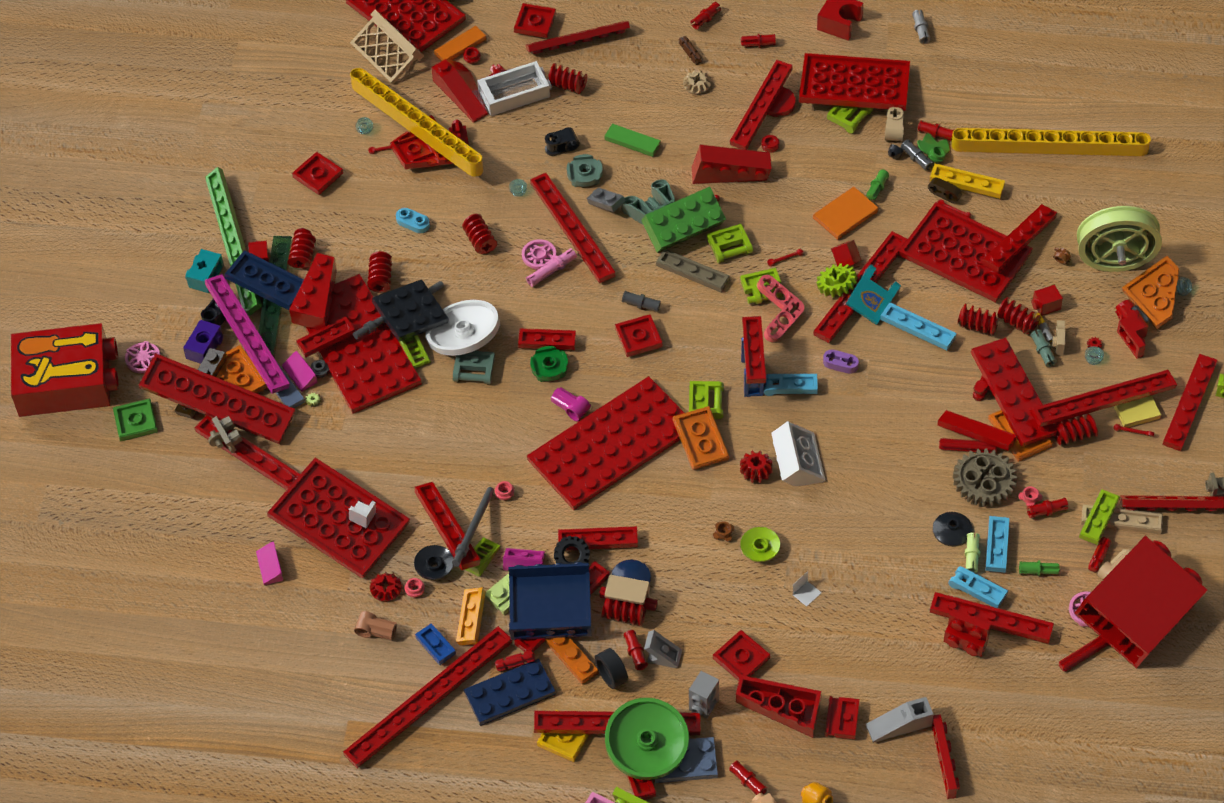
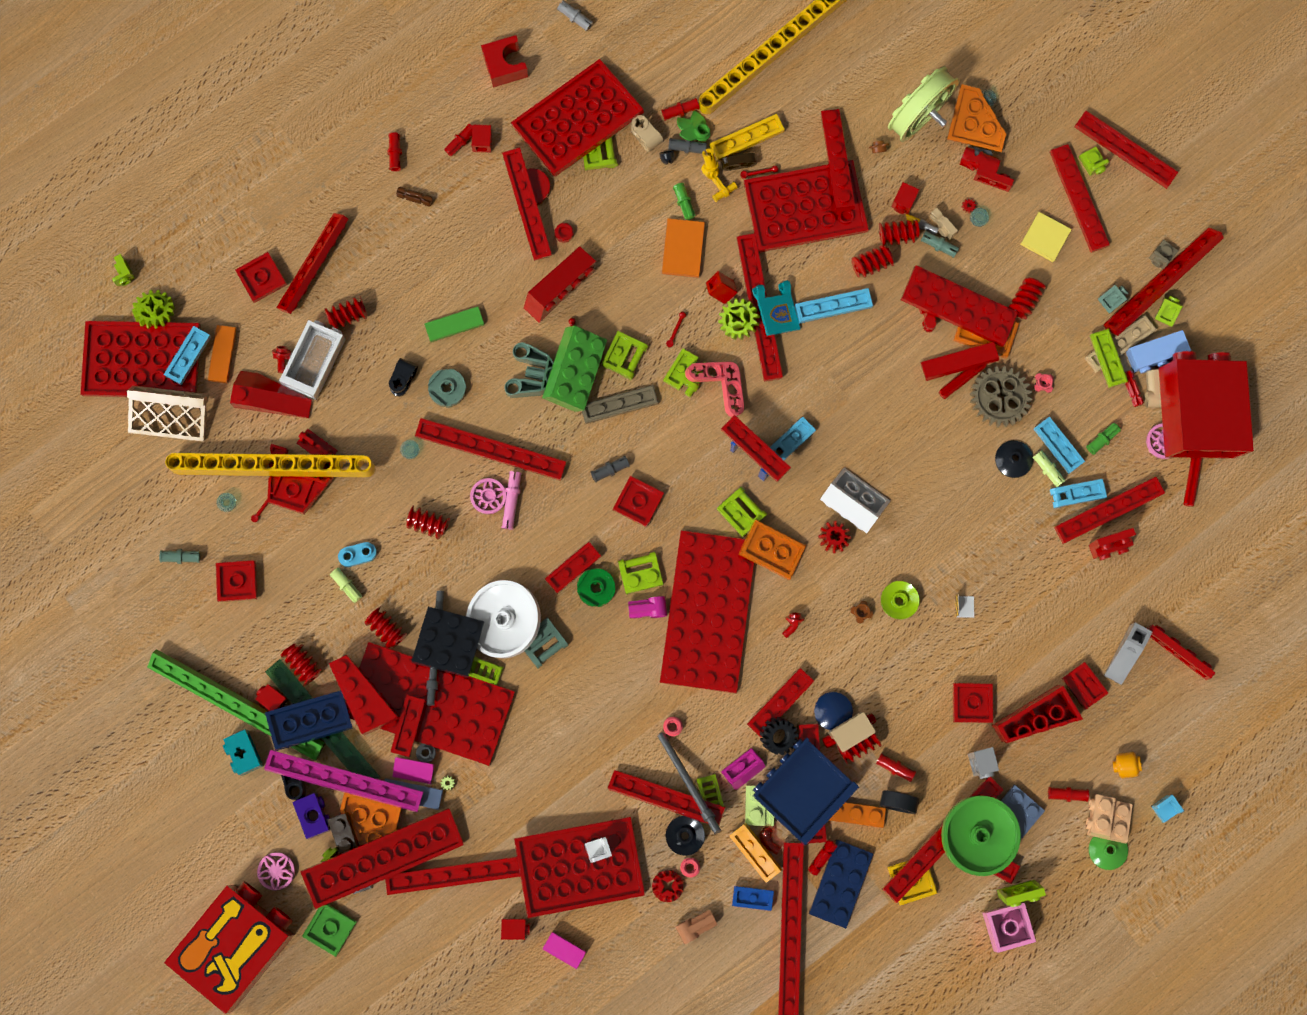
camera: 50 degrees left, 25 degrees up
(218, 438) = (430, 884): dark tan hips -> none
(251, 519) = (514, 929): none -> red brick
(299, 132) = (179, 556): none -> sand green pin
(384, 230) = (346, 585): none -> yellowish green axle
(436, 23) = (187, 355): none -> medium azure plate
(472, 55) = (243, 357): red plate -> none
(490, 613) = (766, 840): none -> clear red arm
(587, 385) = (641, 579): none -> lime plate
(606, 199) = (492, 401): flat silver plate -> none
(662, 650) = (917, 751): light grey slope -> none
(667, 495) = (794, 620): none -> red plate
(701, 86) = (445, 230): tan gear -> none
(774, 48) = (481, 138): none -> red panel
(840, 361) = (803, 384): medium lavender beam -> none
(917, 182) = (711, 171): none -> yellow pin
(1047, 507) = (1065, 382): red pin -> none
(1103, 398) = (1028, 255): red plate -> none
(1117, 427) = (1049, 266): red hinge -> none
(1131, 533) = (1156, 352): none -> light blue brick
(1148, 482) = (1114, 298): none -> sand green bracket
(1184, 524) = (1169, 310): none -> lime bracket

